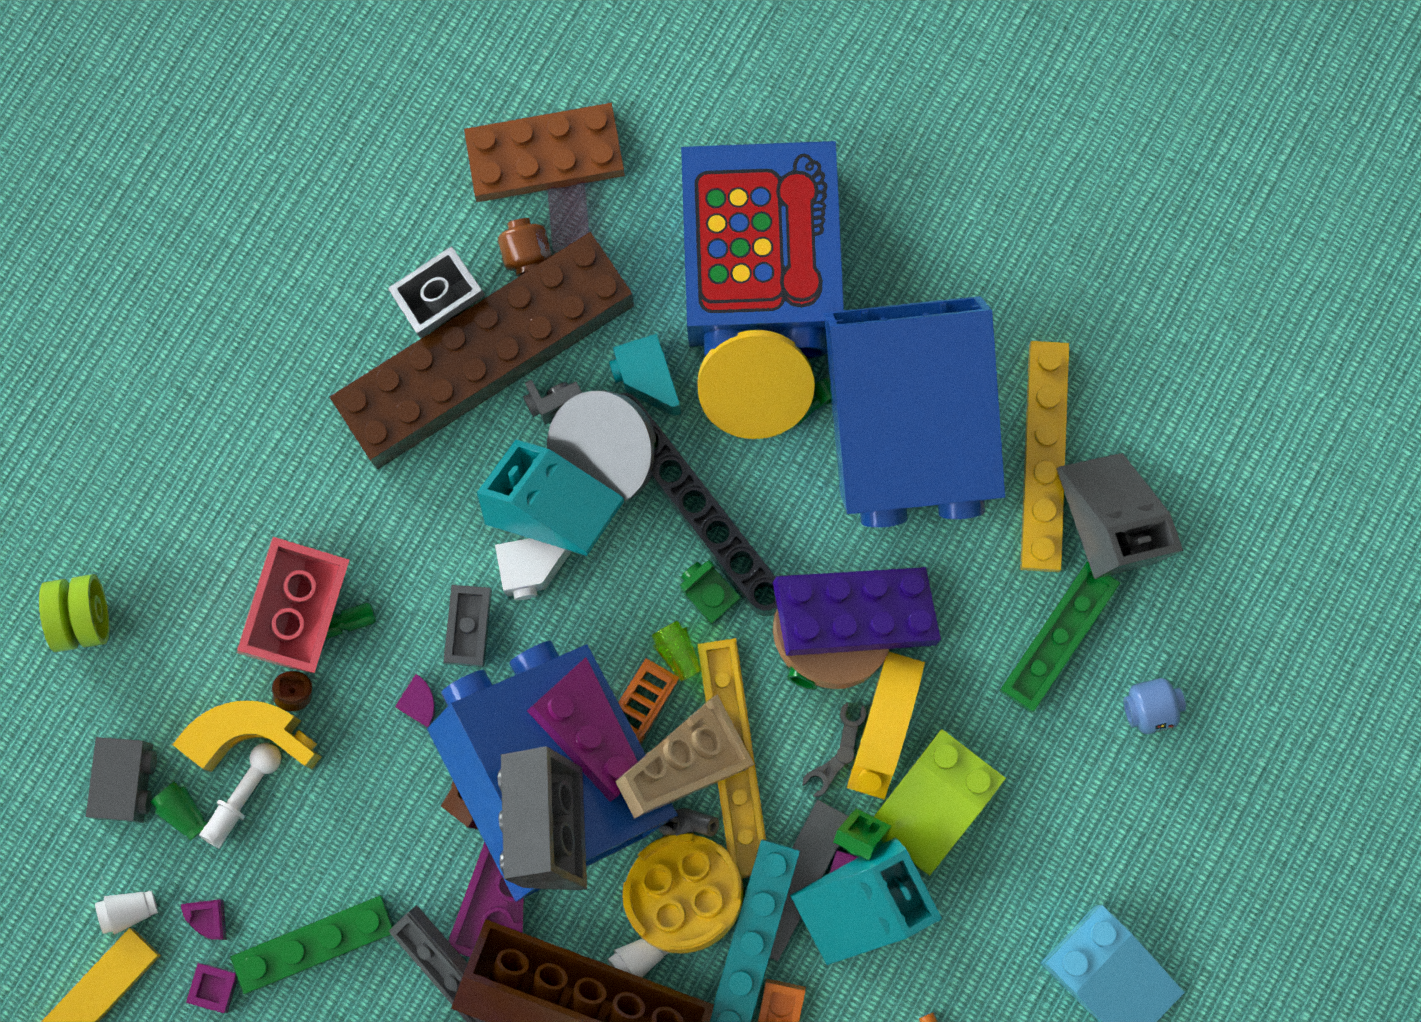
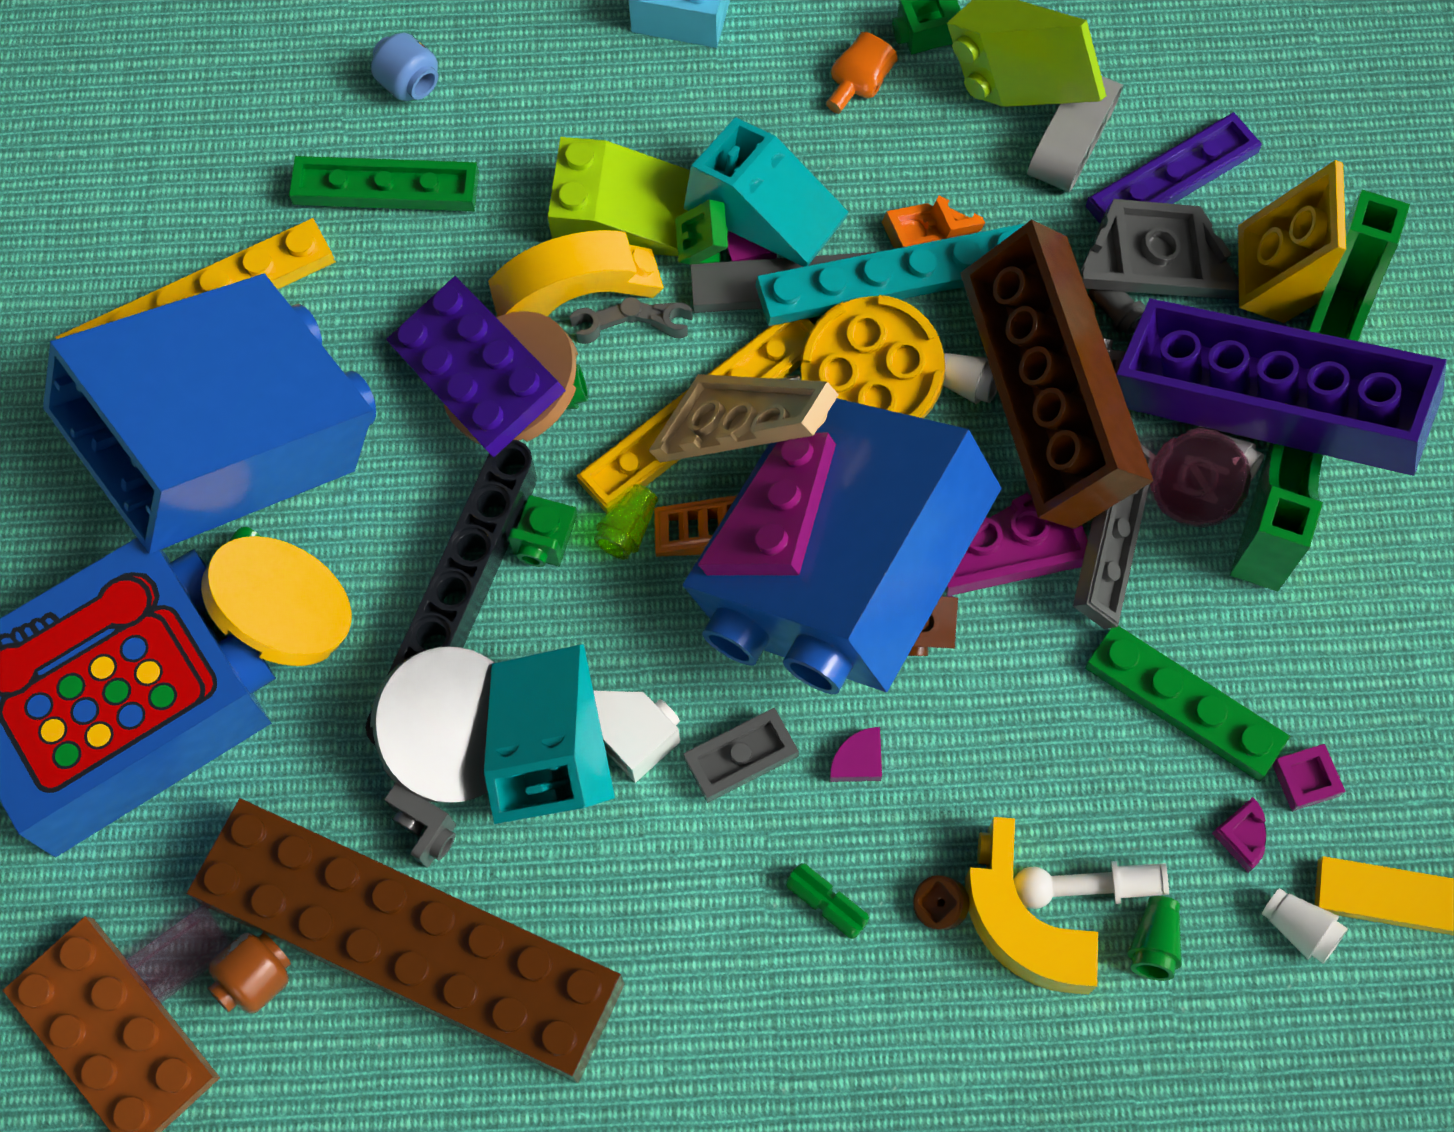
camera: 125 degrees left, 10 degrees down
(121, 780) = (1174, 1029): dark grey brick -> none
(292, 605) = (849, 960): coral slope -> none
(436, 292) = (367, 1026): dark grey slope -> none
(542, 820) = (912, 463): dark grey slope -> none
(645, 373) = (330, 737): teal slope -> none
(1117, 515) = (225, 184): dark grey slope -> none

